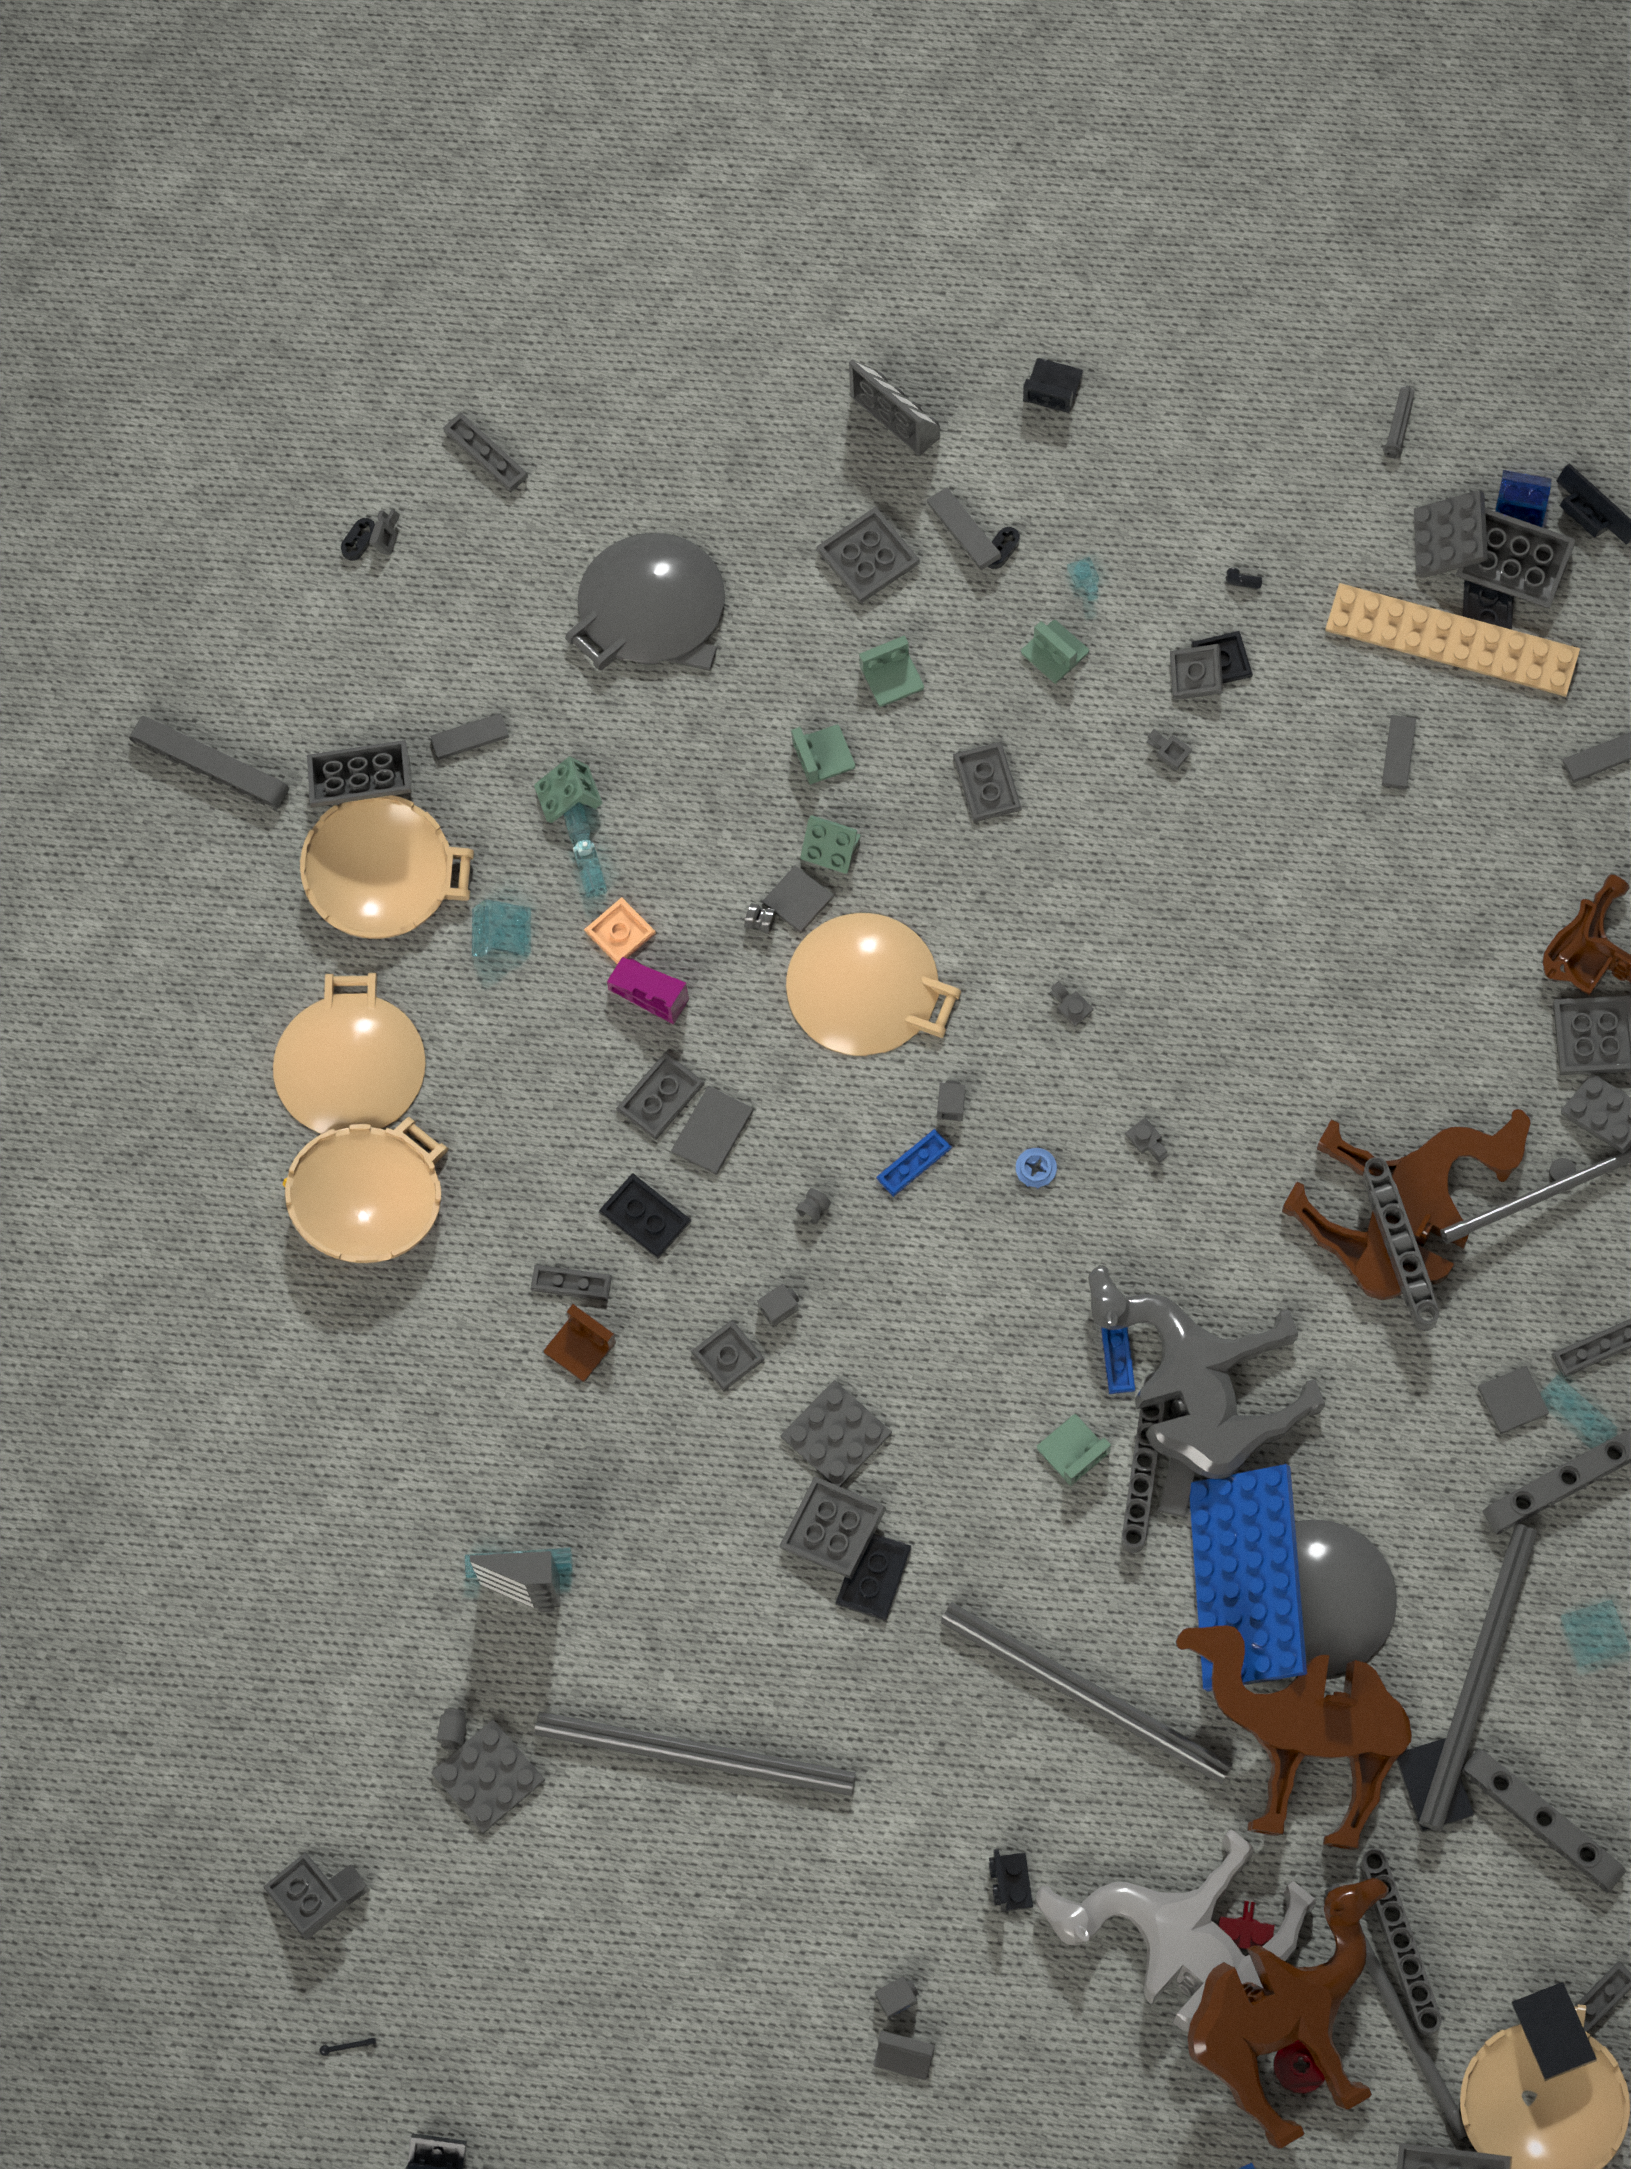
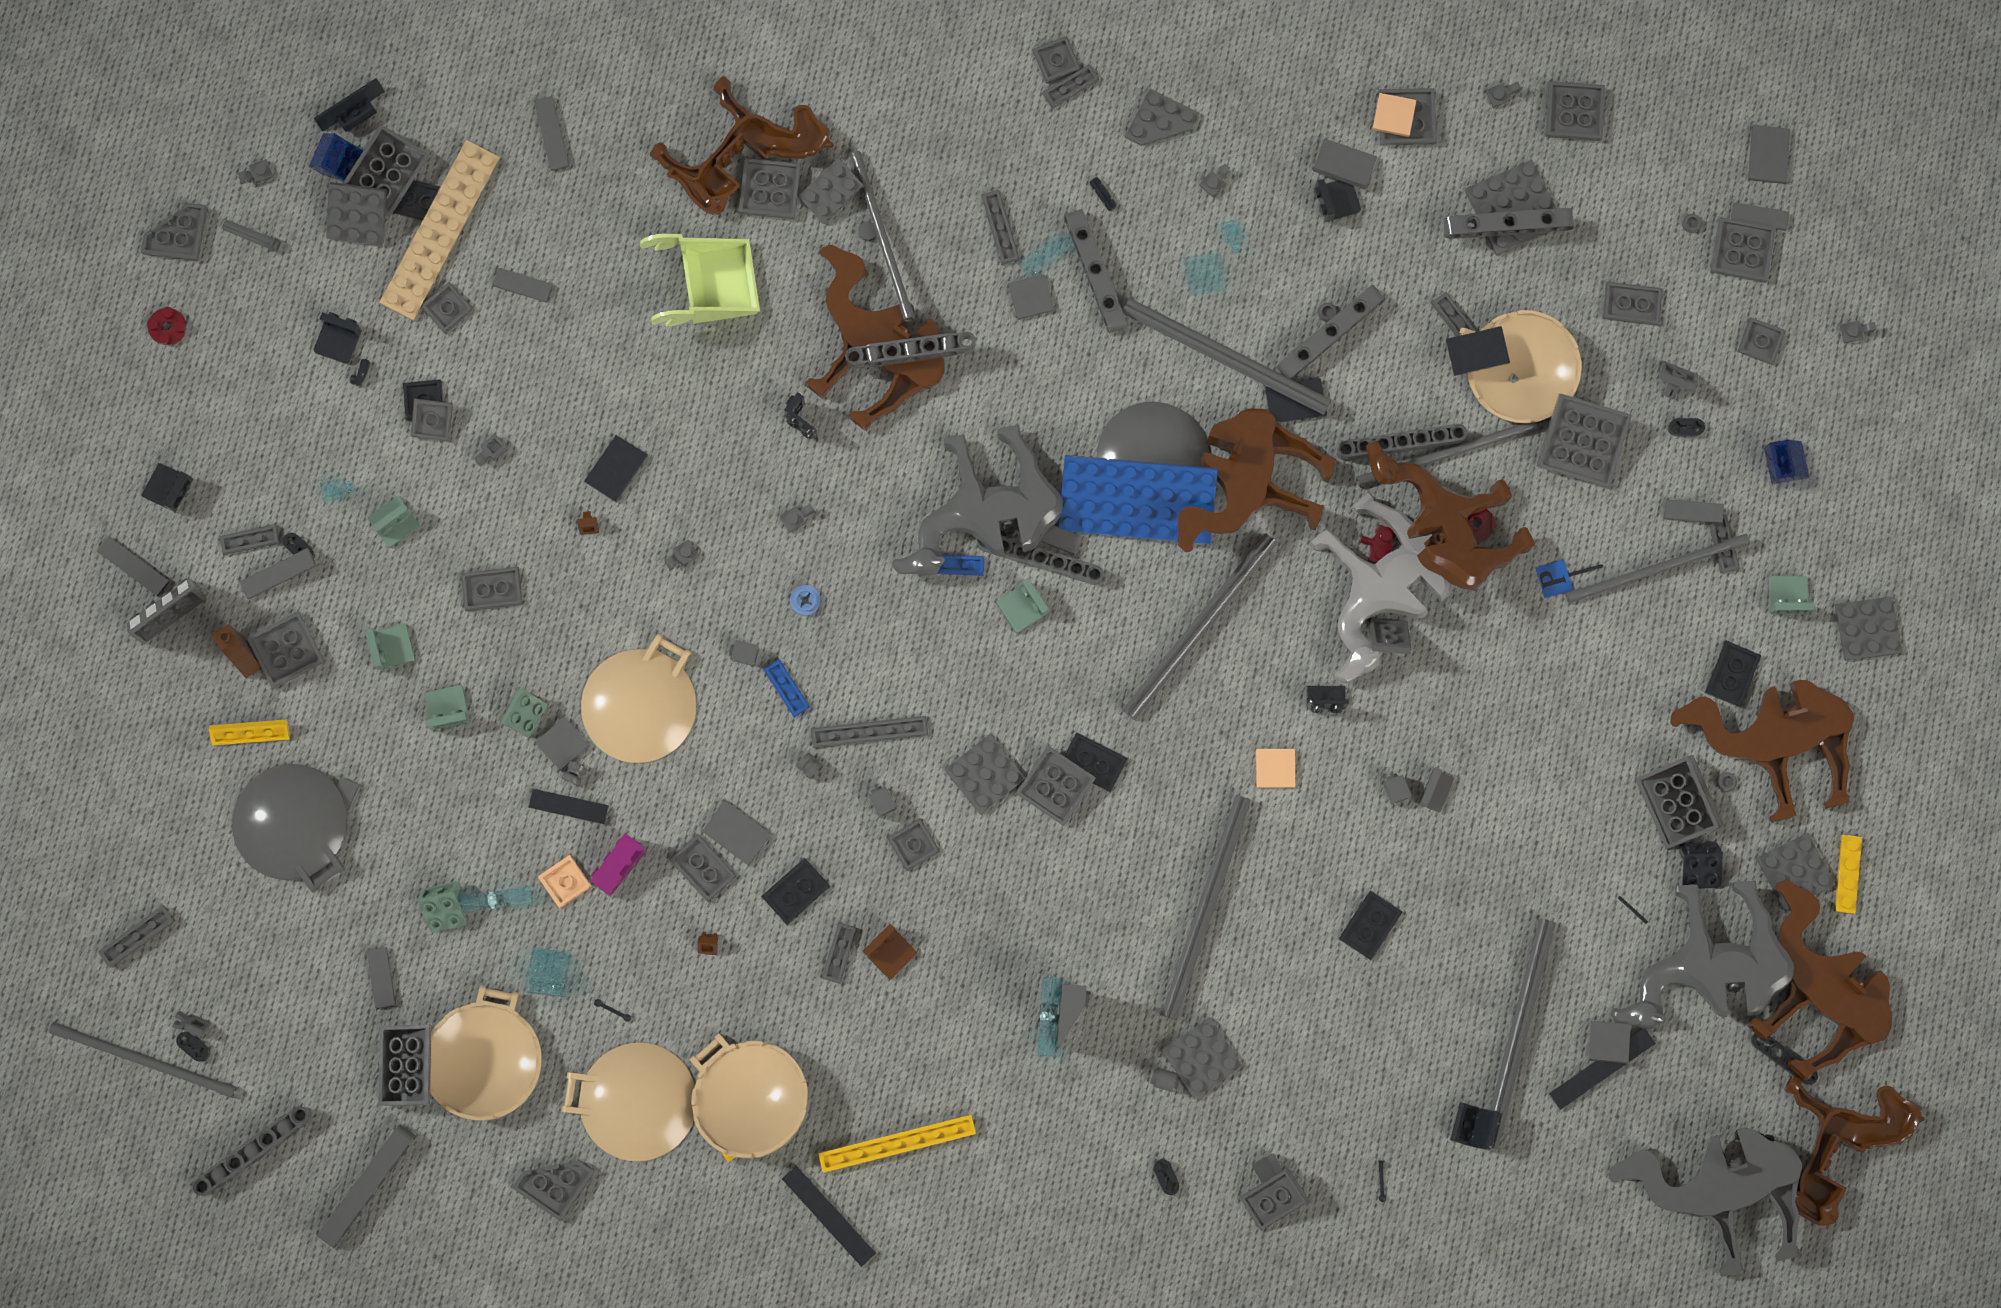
camera: 90 degrees left, 10 degrees up
(227, 1321) = (828, 1216): none -> black tile
(230, 981) = (554, 1186): none -> dark grey plate
(238, 625) = (251, 1151): none -> dark grey beam
(313, 575) = (217, 1086): none -> dark grey piece
(327, 1754) = (1162, 1180): none -> black beam
(329, 1393) = (897, 1143): none -> yellow plate
(469, 997) = (598, 1003): none -> black hinge
(559, 1116) = (708, 945): none -> reddish brown tile
(699, 1985) = (1370, 925): none -> black tile
(717, 920) = (568, 806): none -> black tile
(756, 531) = (249, 732): none -> yellow plate
(855, 491) = (237, 650): none -> reddish brown slope
(871, 1277) = (869, 731): none -> dark grey tile
(902, 1824) = (1275, 768): none -> light nougat tile
(946, 366) = (133, 566): none -> dark grey tile
(1003, 490) = (249, 539): none -> dark grey tile
(1091, 881) = (588, 524): none -> reddish brown tile
(1111, 1954) = (1389, 636): none -> dark grey tile
(1173, 905) = (615, 468): none -> black tile
(1260, 335) = (163, 316): none -> dark red plate
(1282, 543) = (337, 337): none -> black bracket
(1291, 1107) = (794, 406): none -> black bracket
(1350, 666) = (447, 307): none -> dark grey tile
(1382, 338) = (178, 234): none -> dark grey plate
(1454, 984) = (717, 278): none -> yellowish green piece
(1484, 416) = (258, 172): none -> dark grey plate
(1574, 1811) = (1327, 312): none -> dark grey tile

